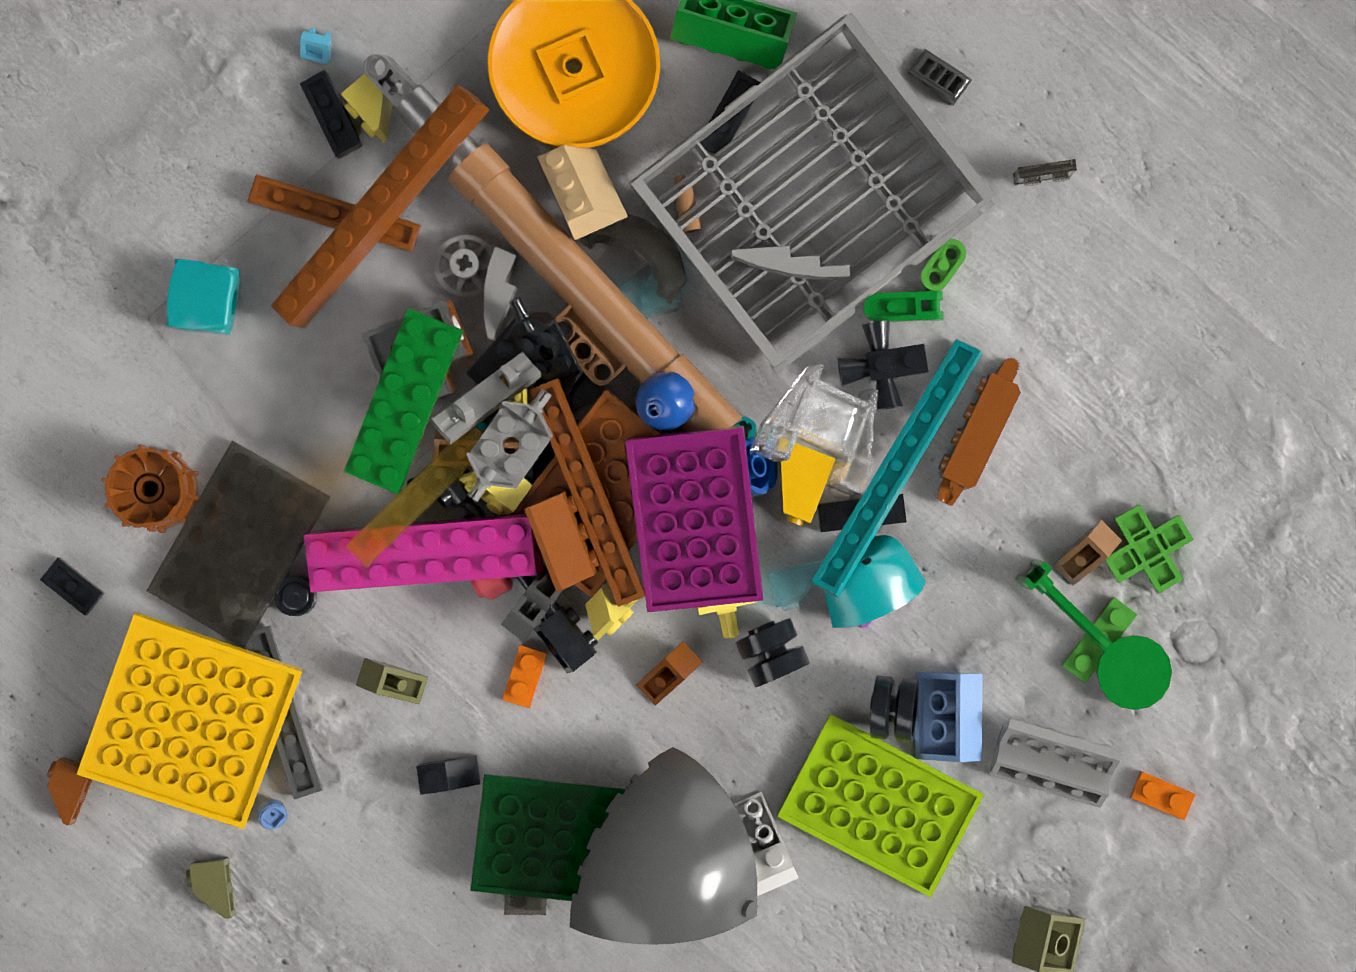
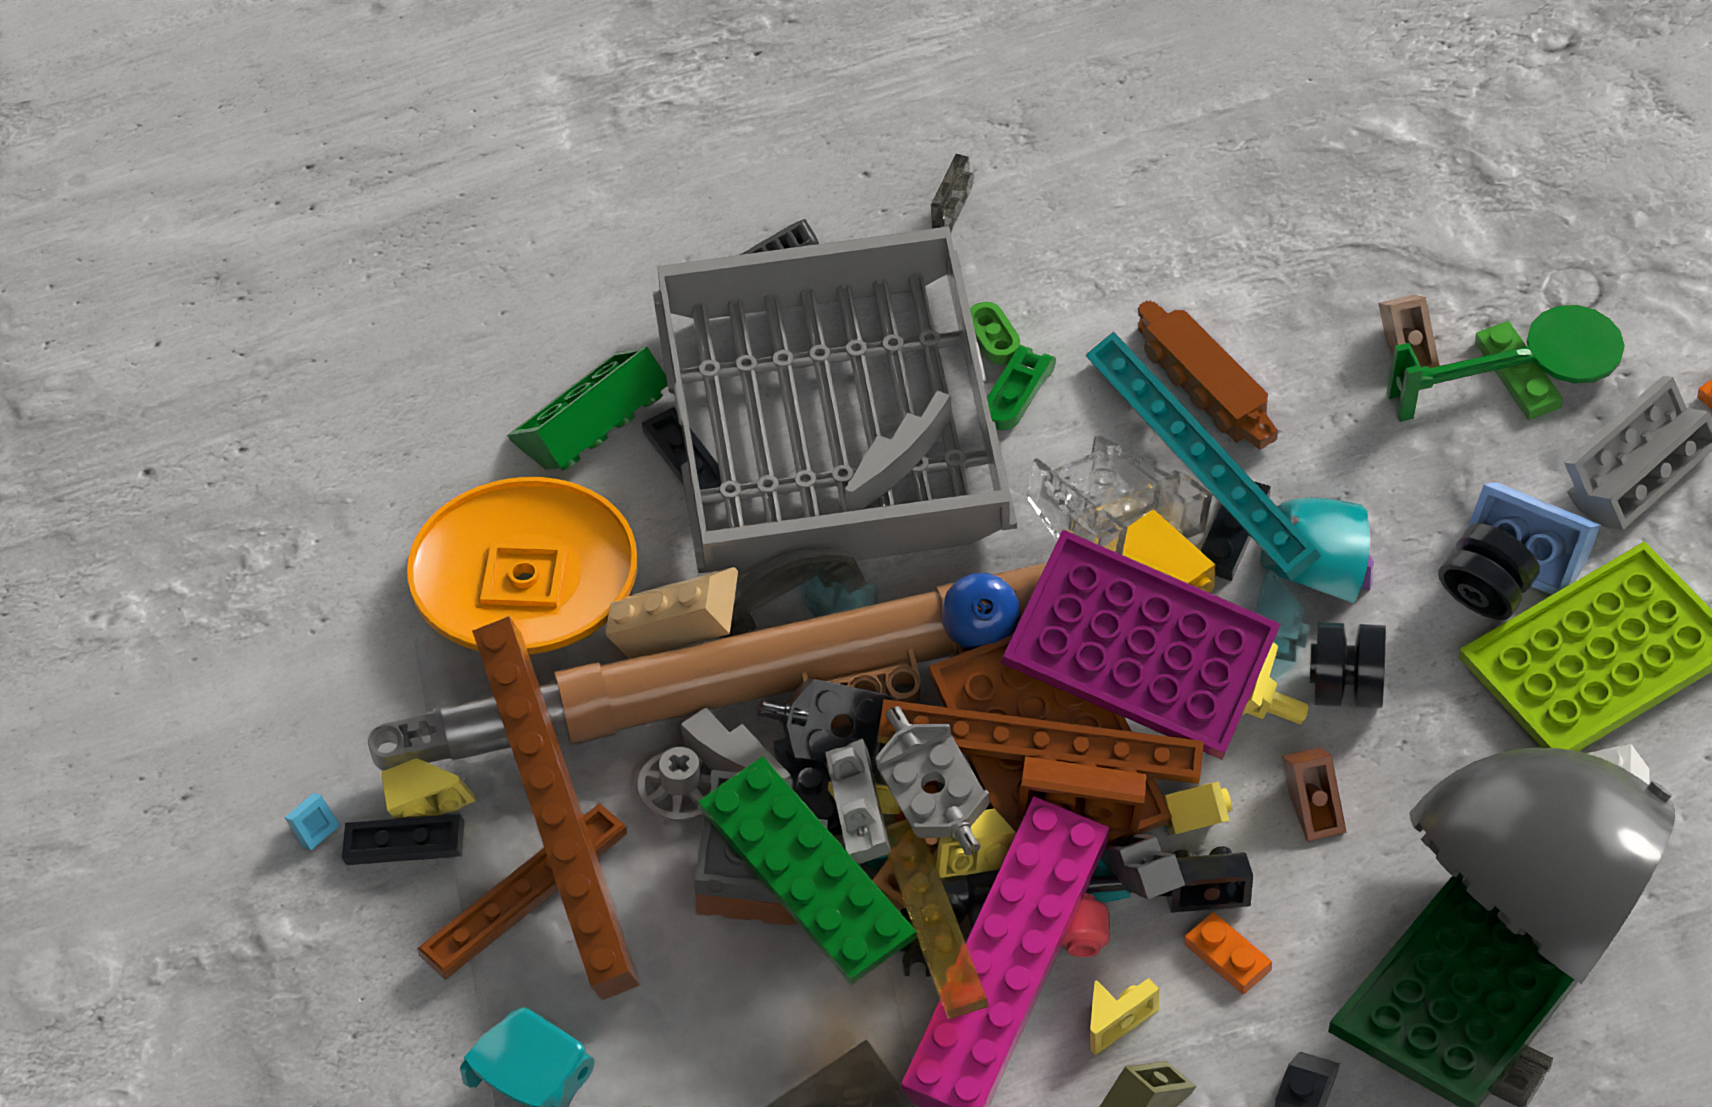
camera: 60 degrees left, 35 degrees down
(433, 630) = (1115, 1018): none -> light yellow slope
(883, 364) = (1073, 421): black brick -> none
(1148, 549) = (1439, 280): bright green plate -> none

